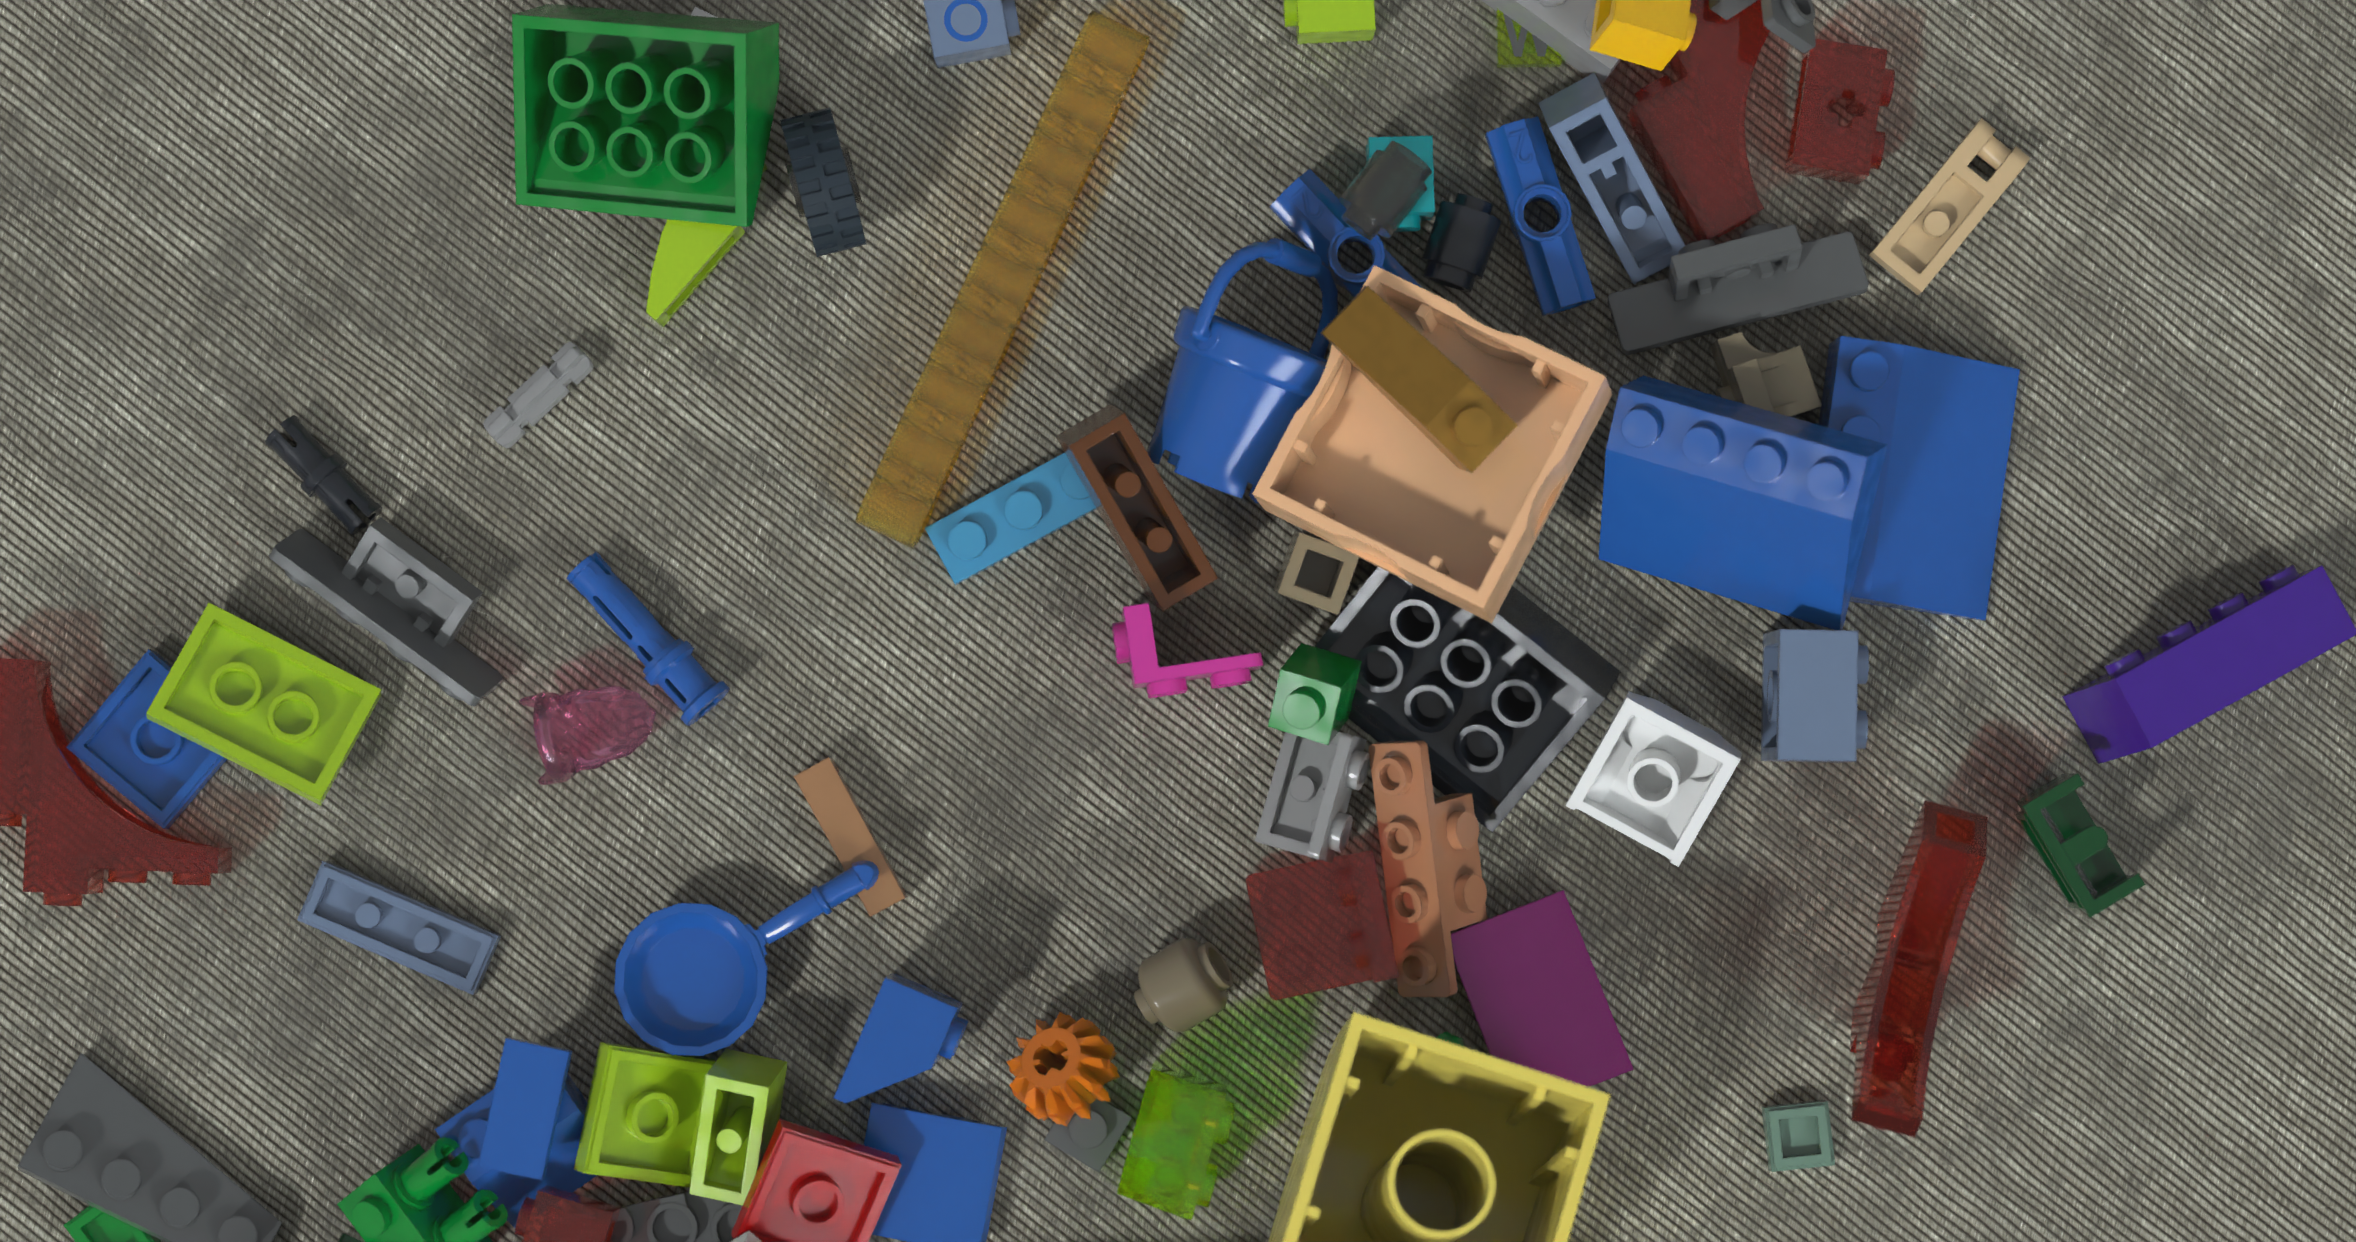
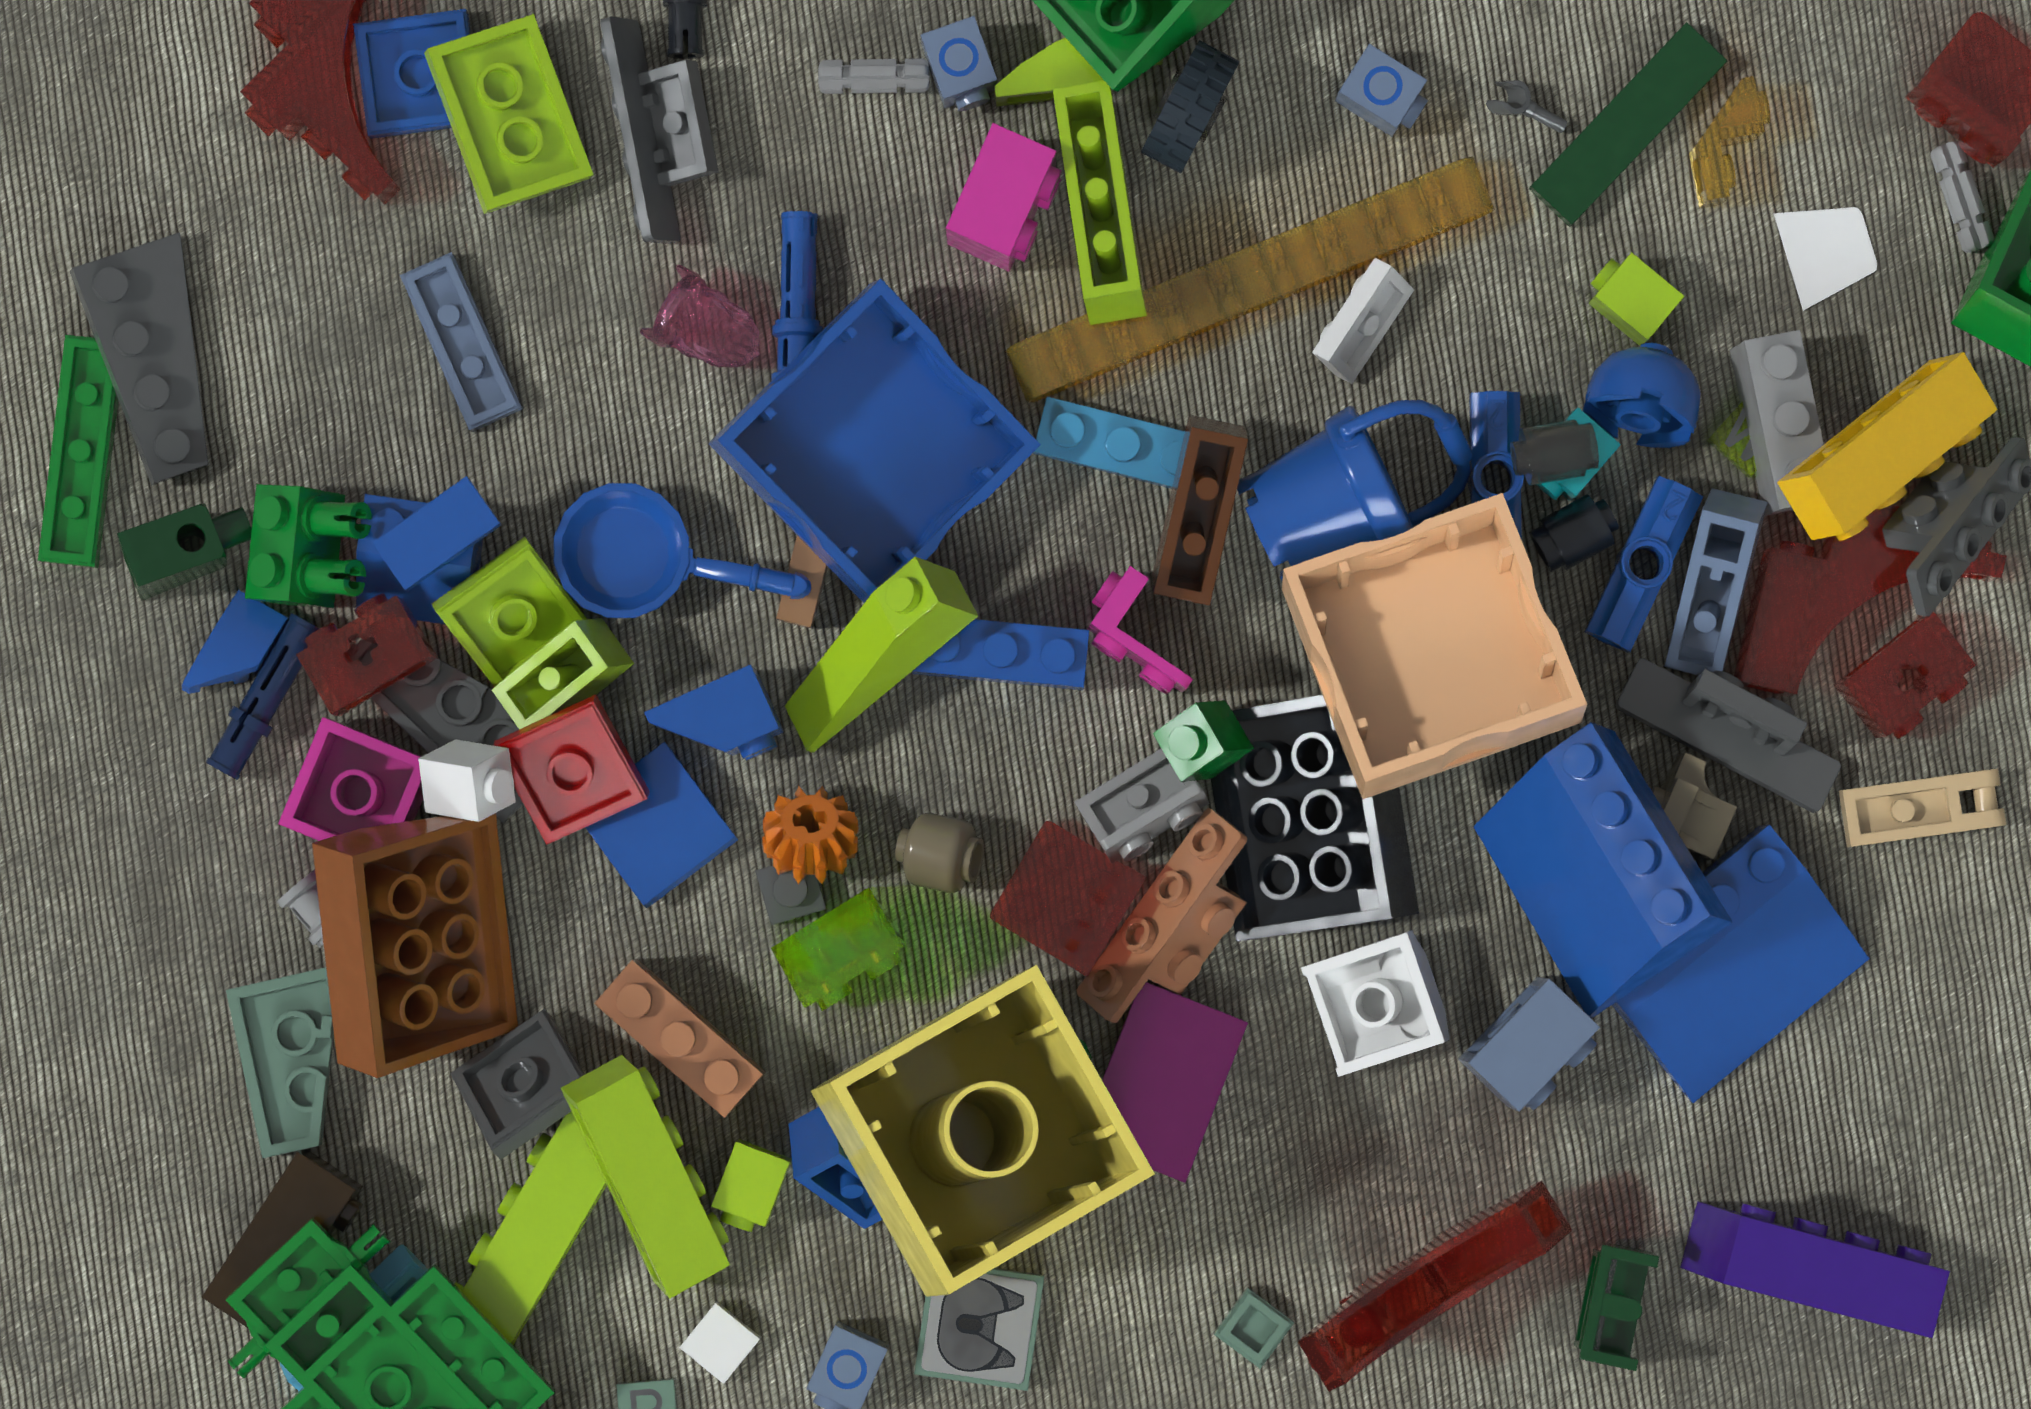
camera: 45 degrees right, 0 degrees up
(600, 320) = (960, 64): none -> sand blue brick
(737, 398) = (1002, 198): none -> dark pink brick
(818, 699) = (873, 441): none -> blue tile
(821, 329) = (1099, 202): none -> lime brick
(978, 863) = (879, 647): none -> lime slope
(1080, 774) = (1012, 655): none -> blue brick
(1126, 227) = (1362, 320): none -> white plate
(1316, 573) = (1277, 662): dark tan brick -> none
(1414, 74) = (1647, 394): none -> blue cylinder
(1419, 380) = (1461, 595): pearl gold slope -> none

